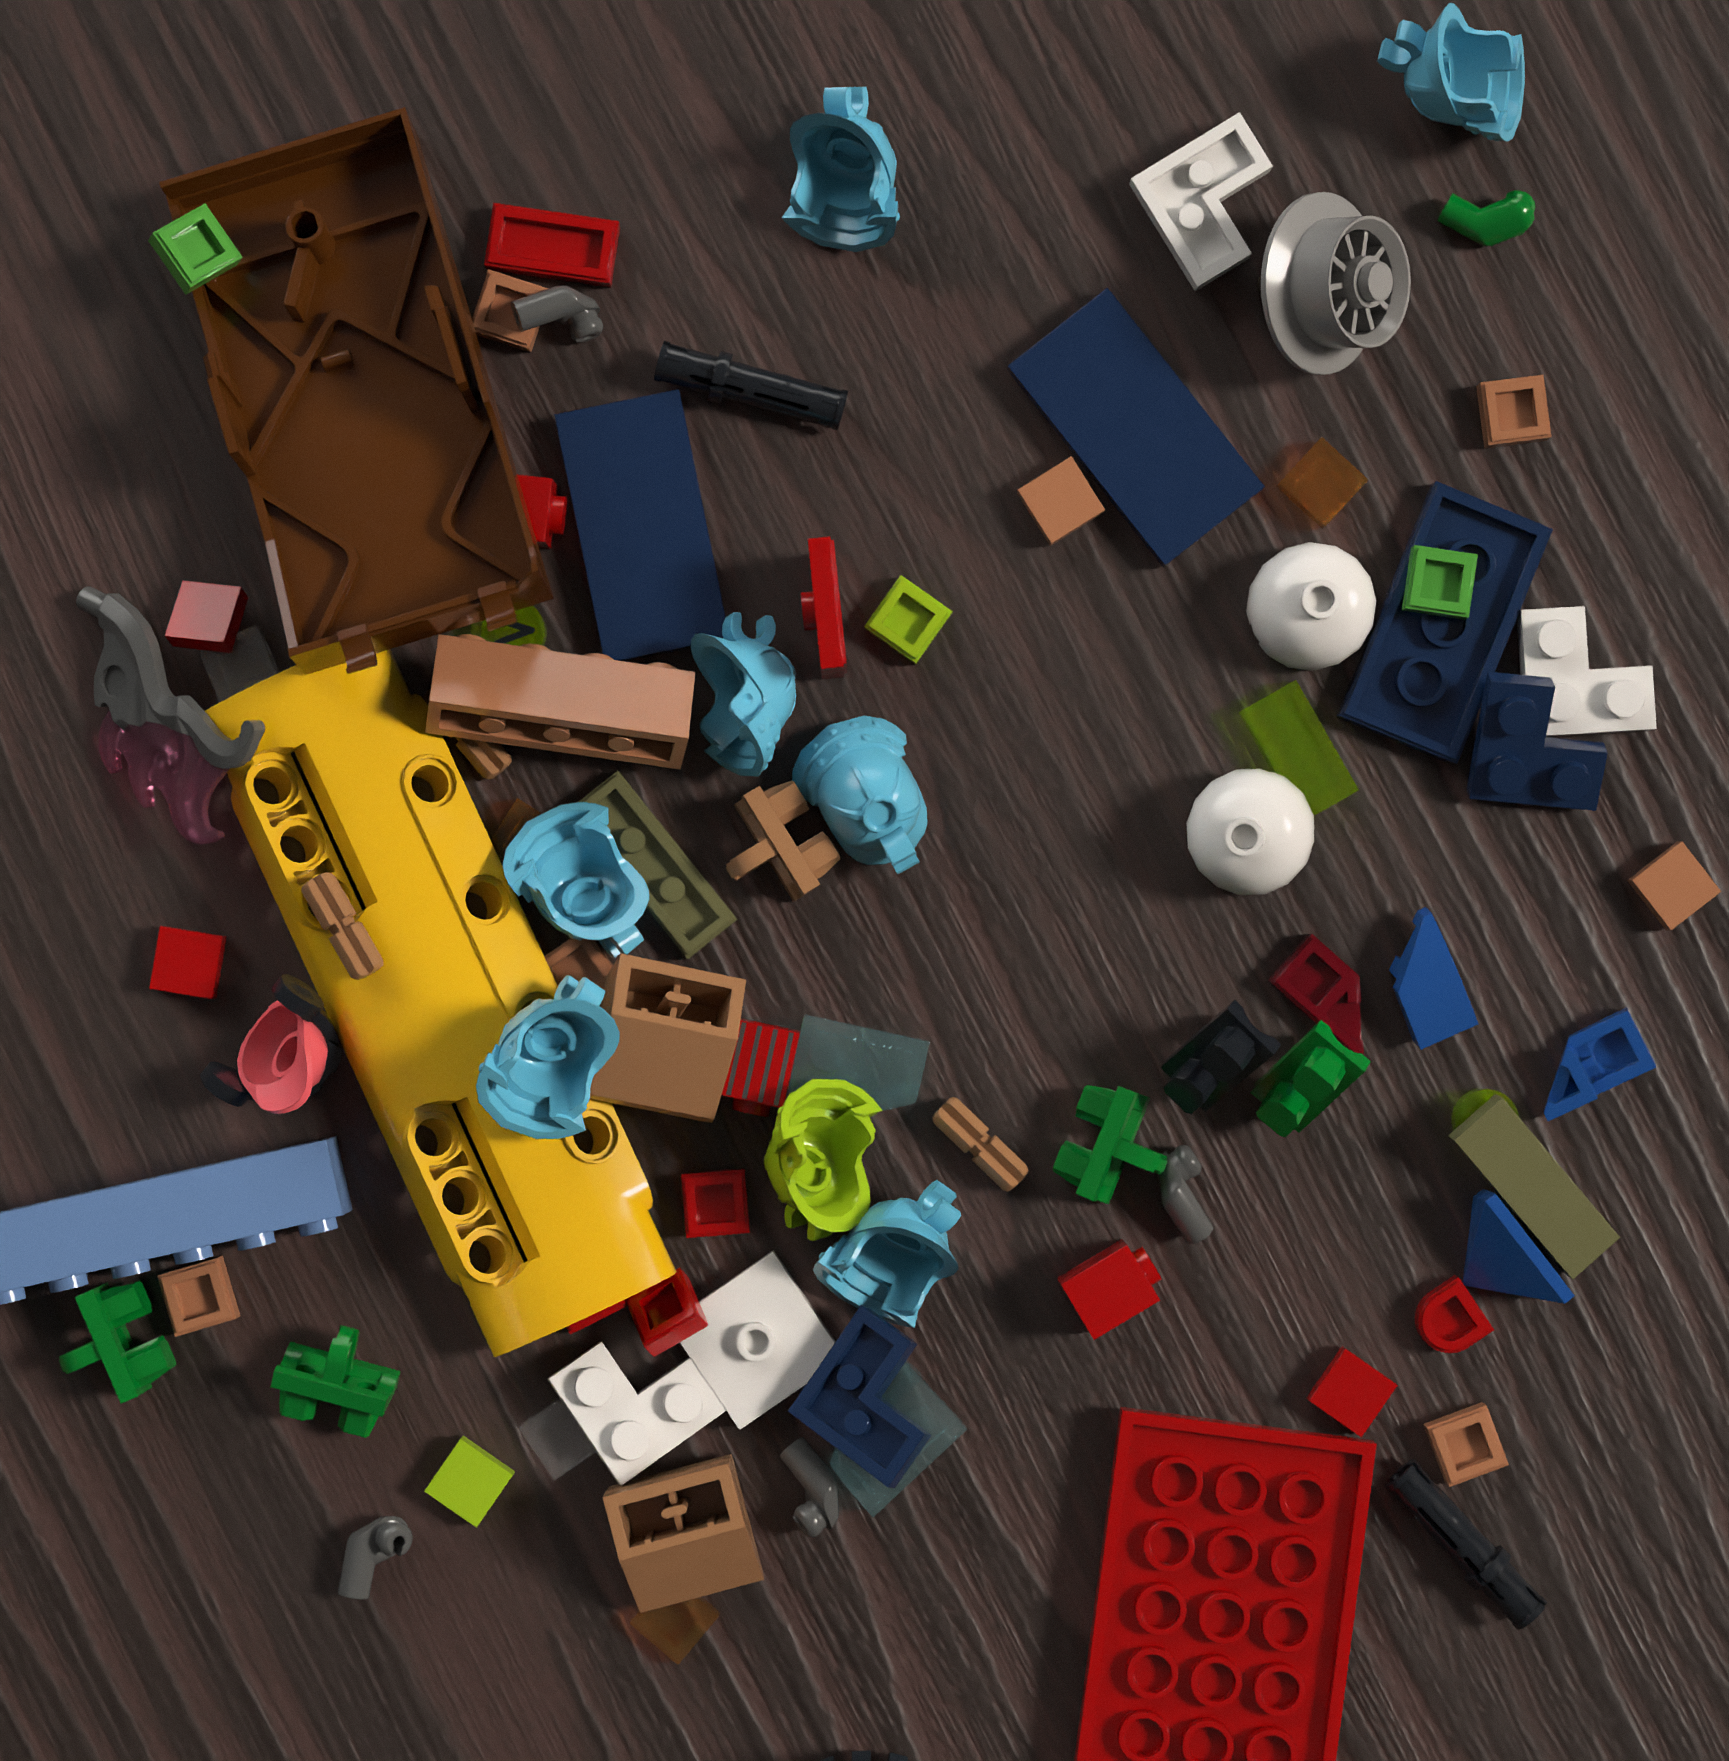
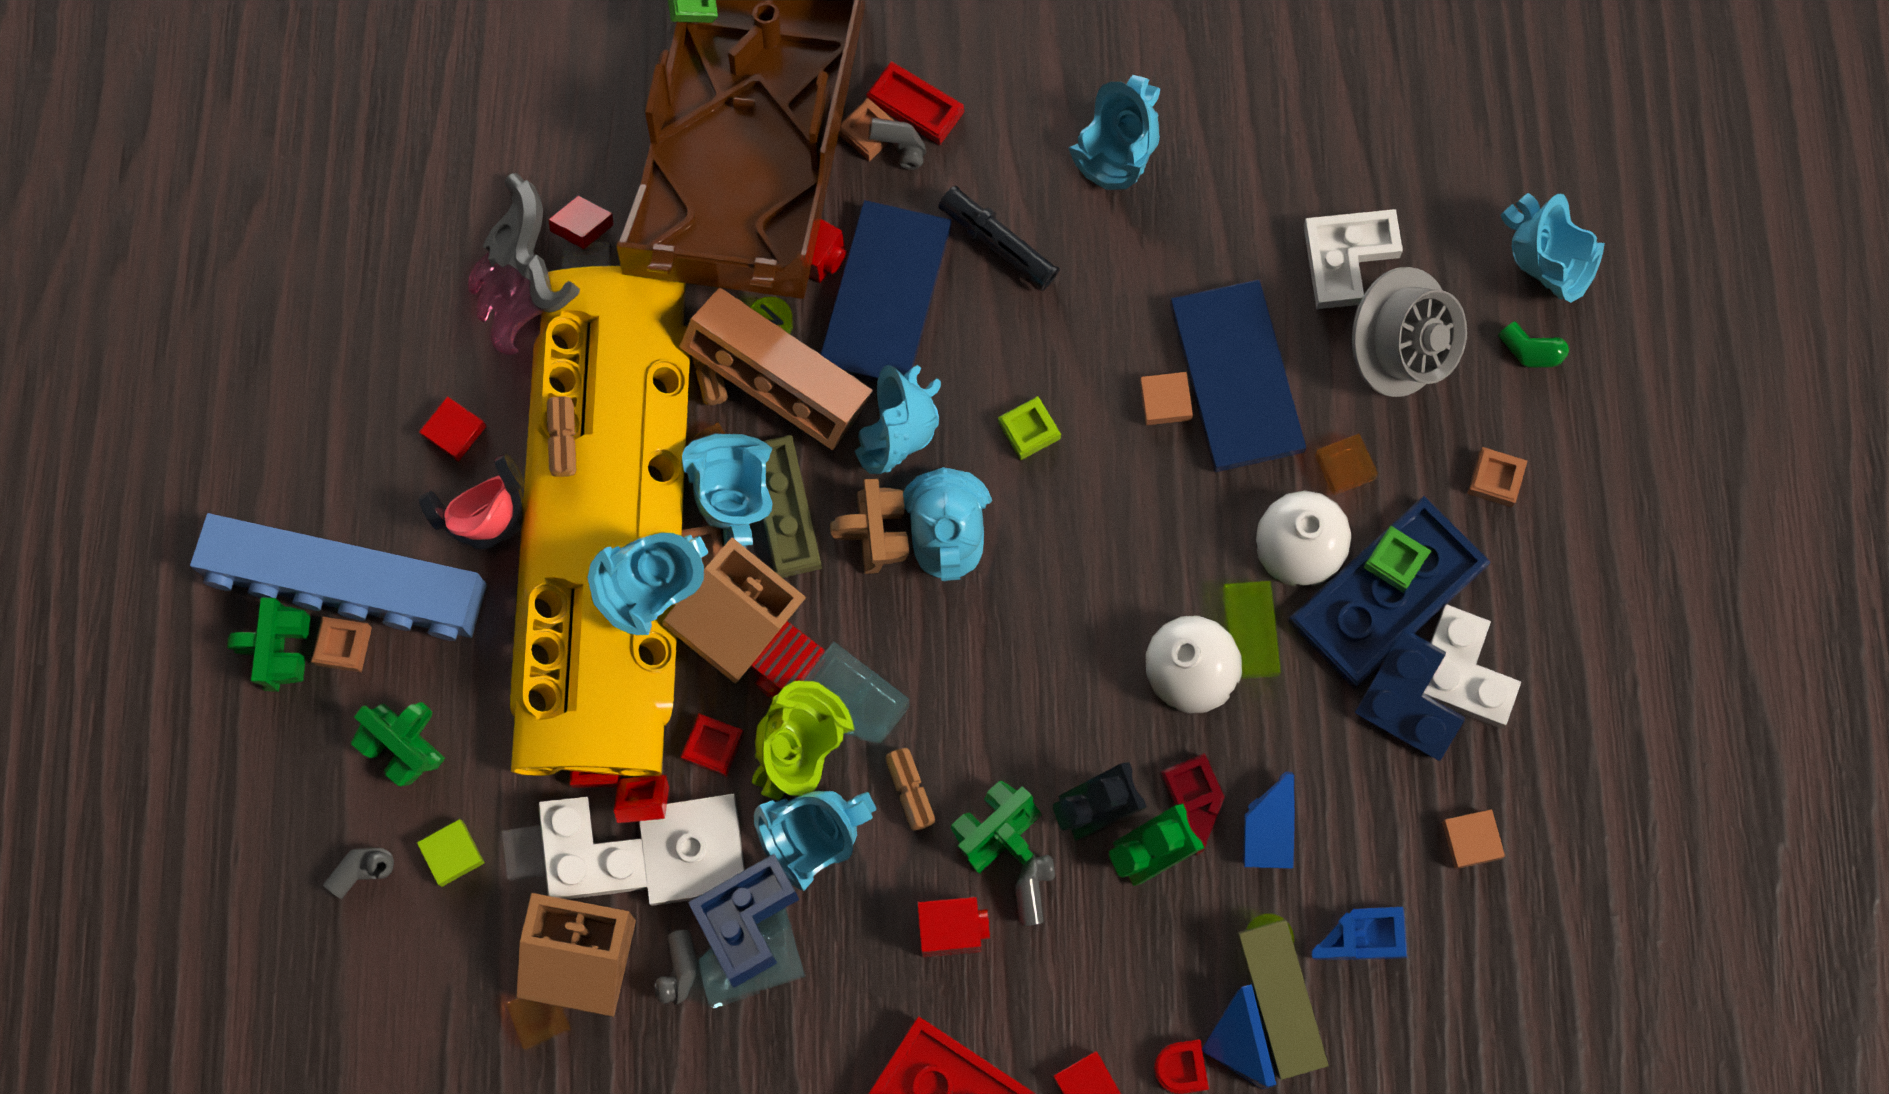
camera: 30 degrees right, 15 degrees down
(823, 608) = (977, 387): red plate -> none

